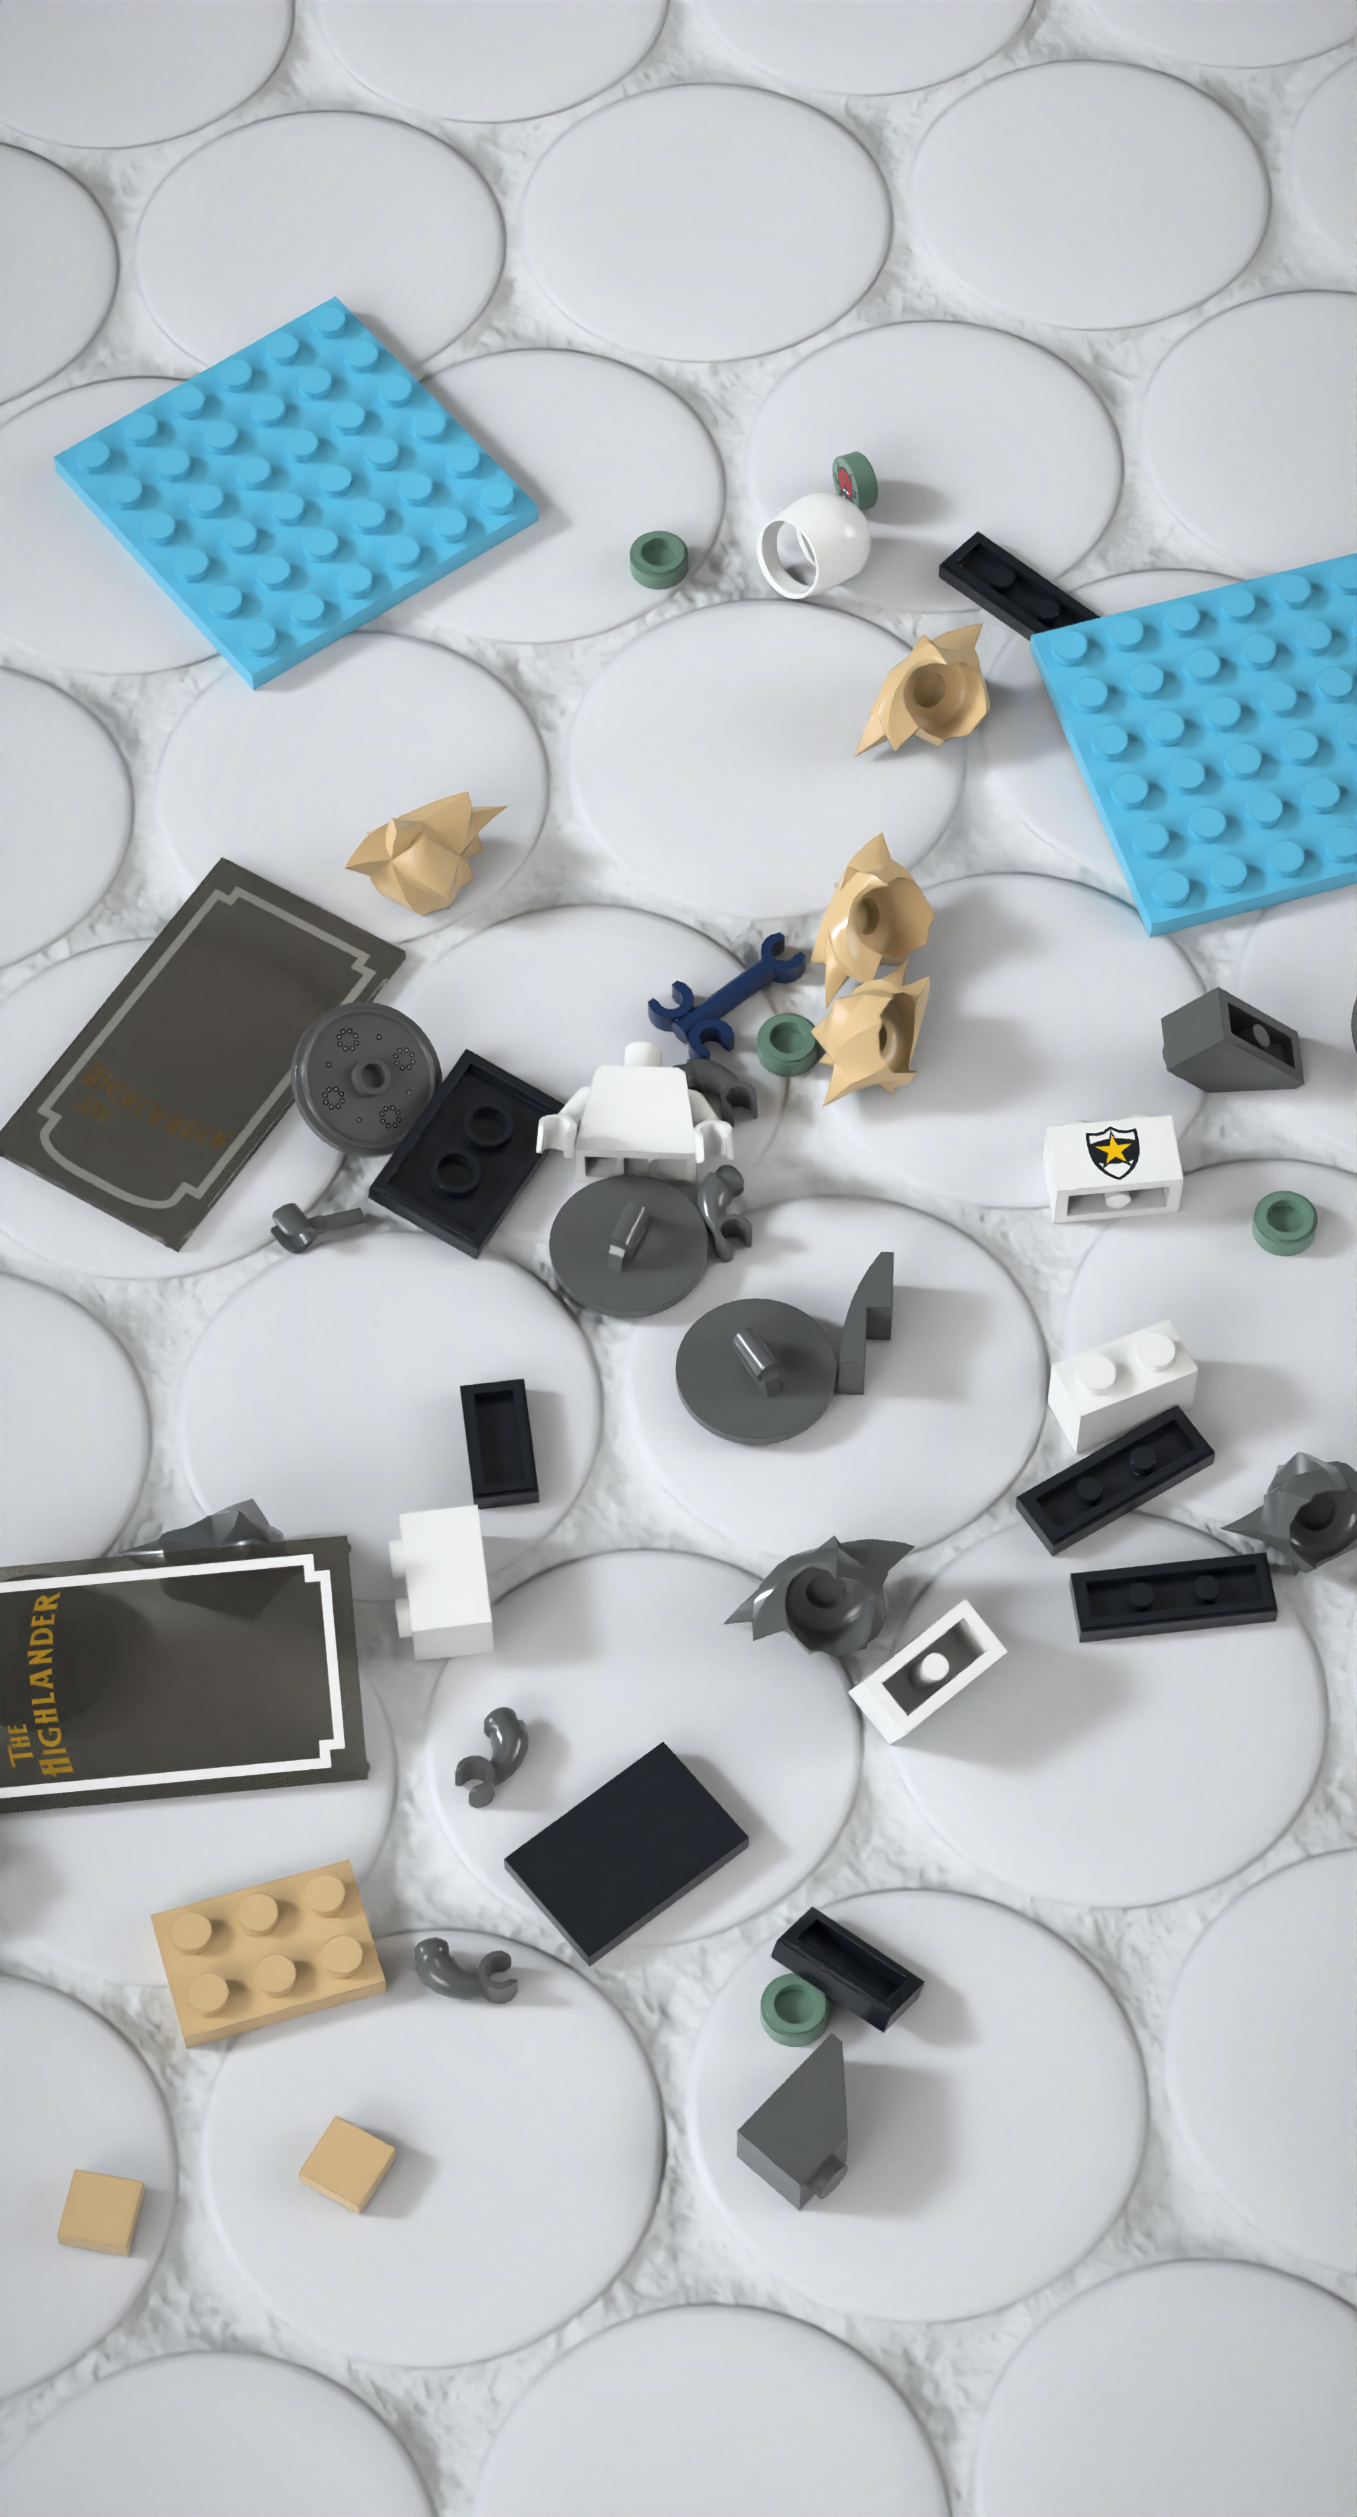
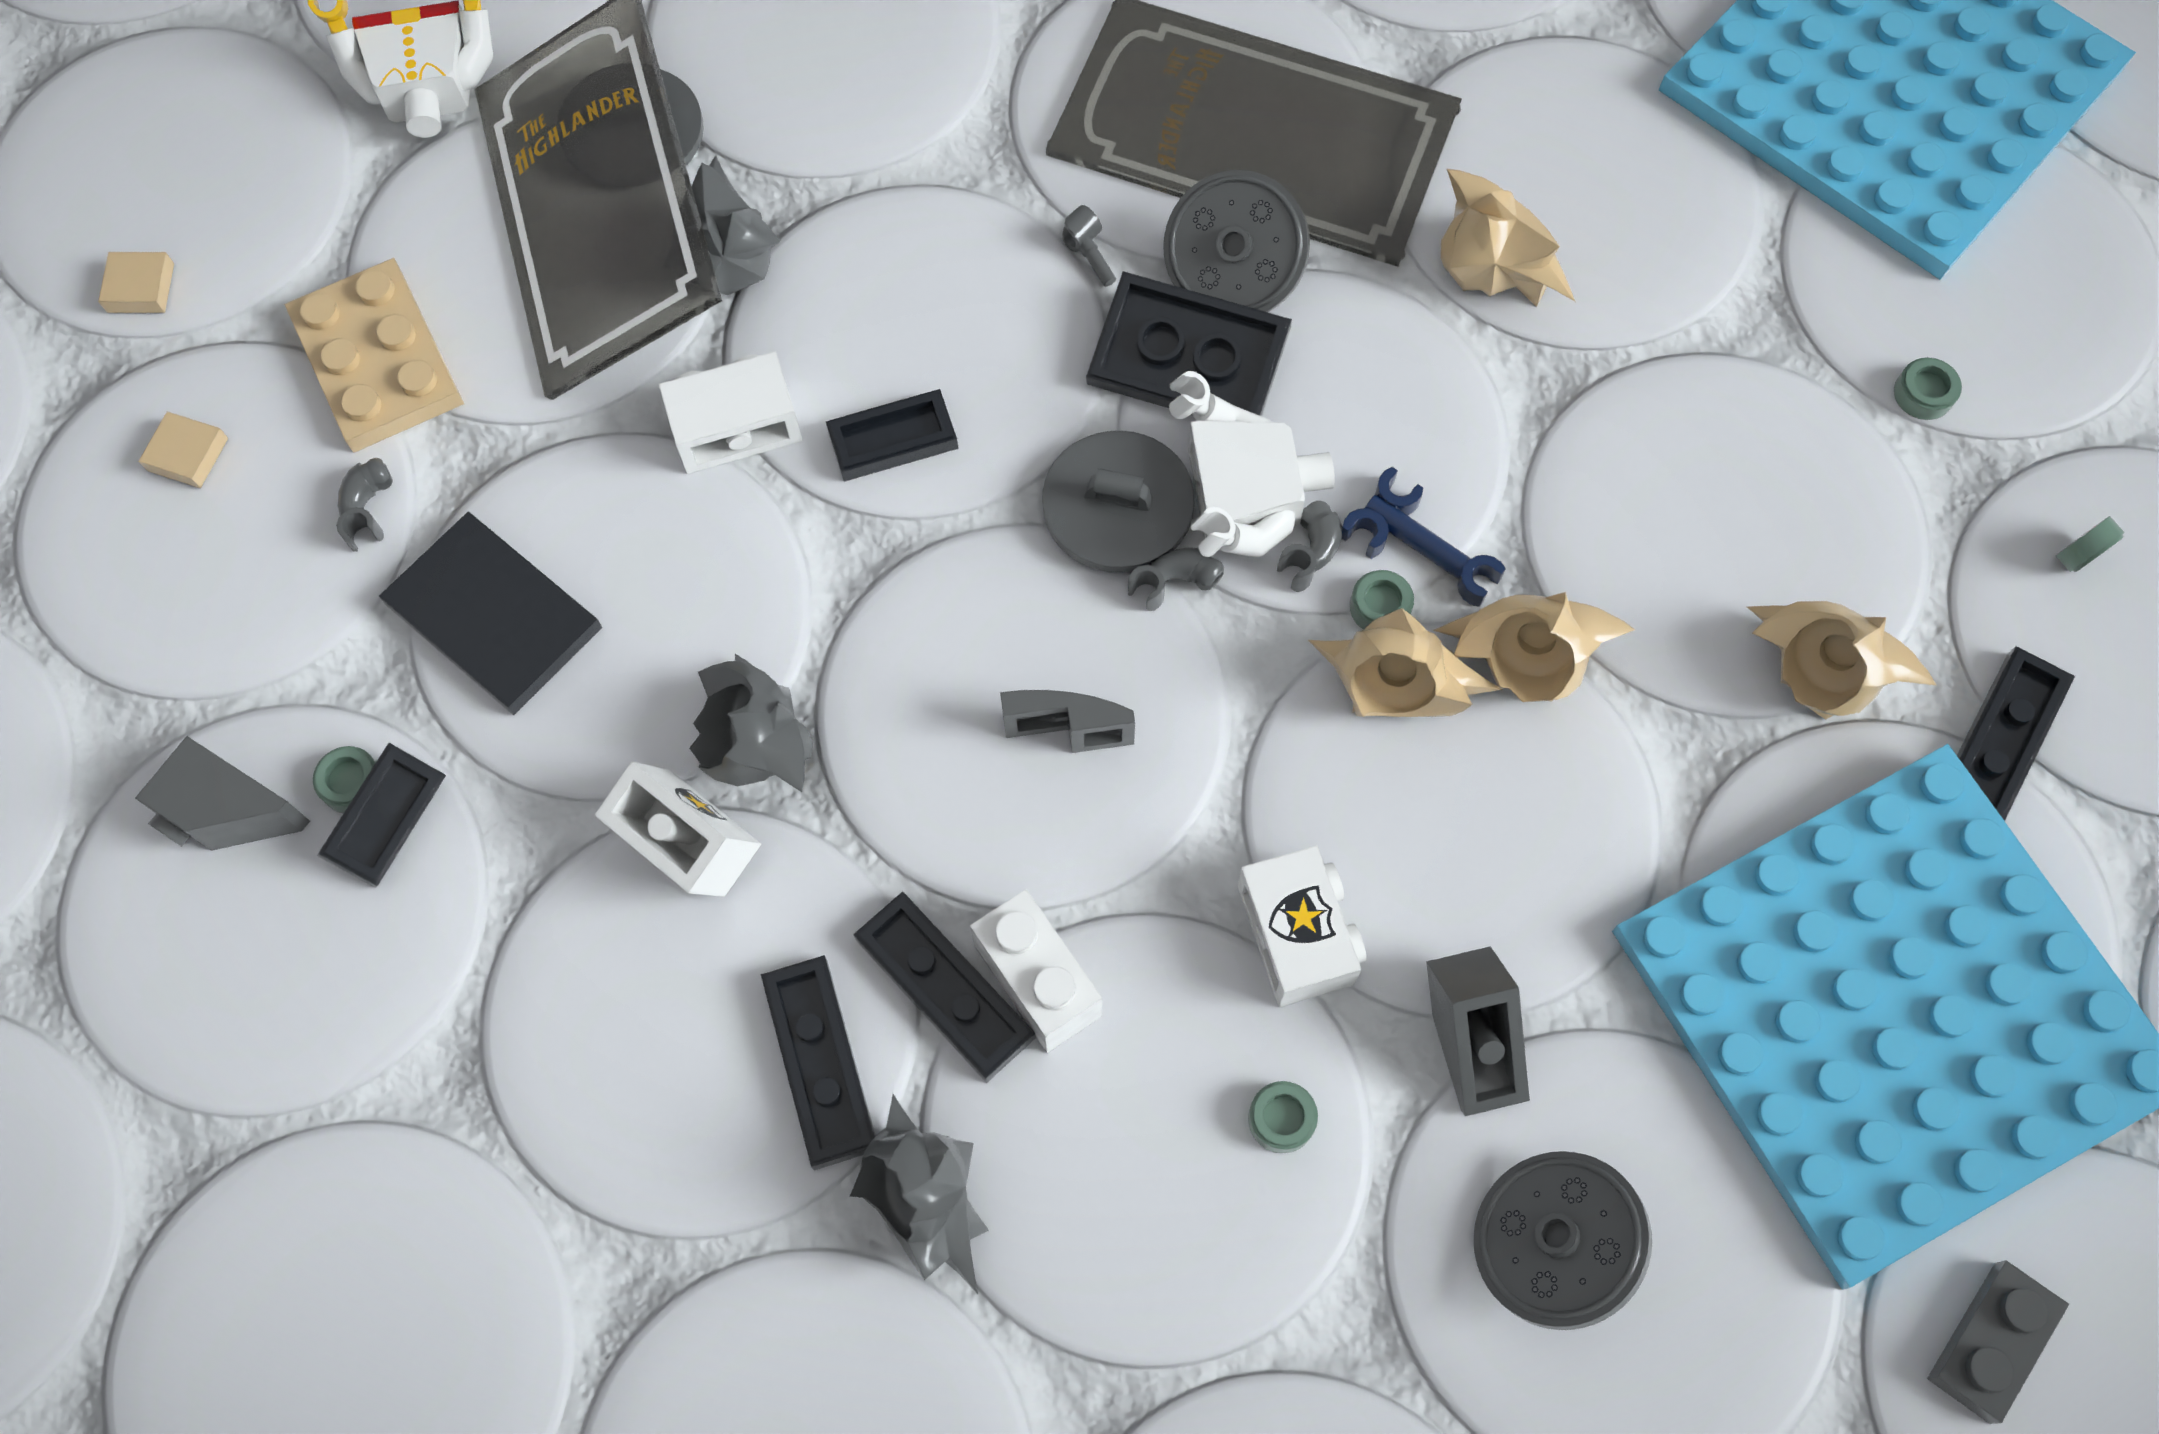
camera: 80 degrees right, 10 degrees up
(509, 1747) = (583, 498): dark grey arm -> none
(756, 1371) = (1002, 631): dark grey shield -> none
(831, 537) = (1996, 526): white helmet -> none

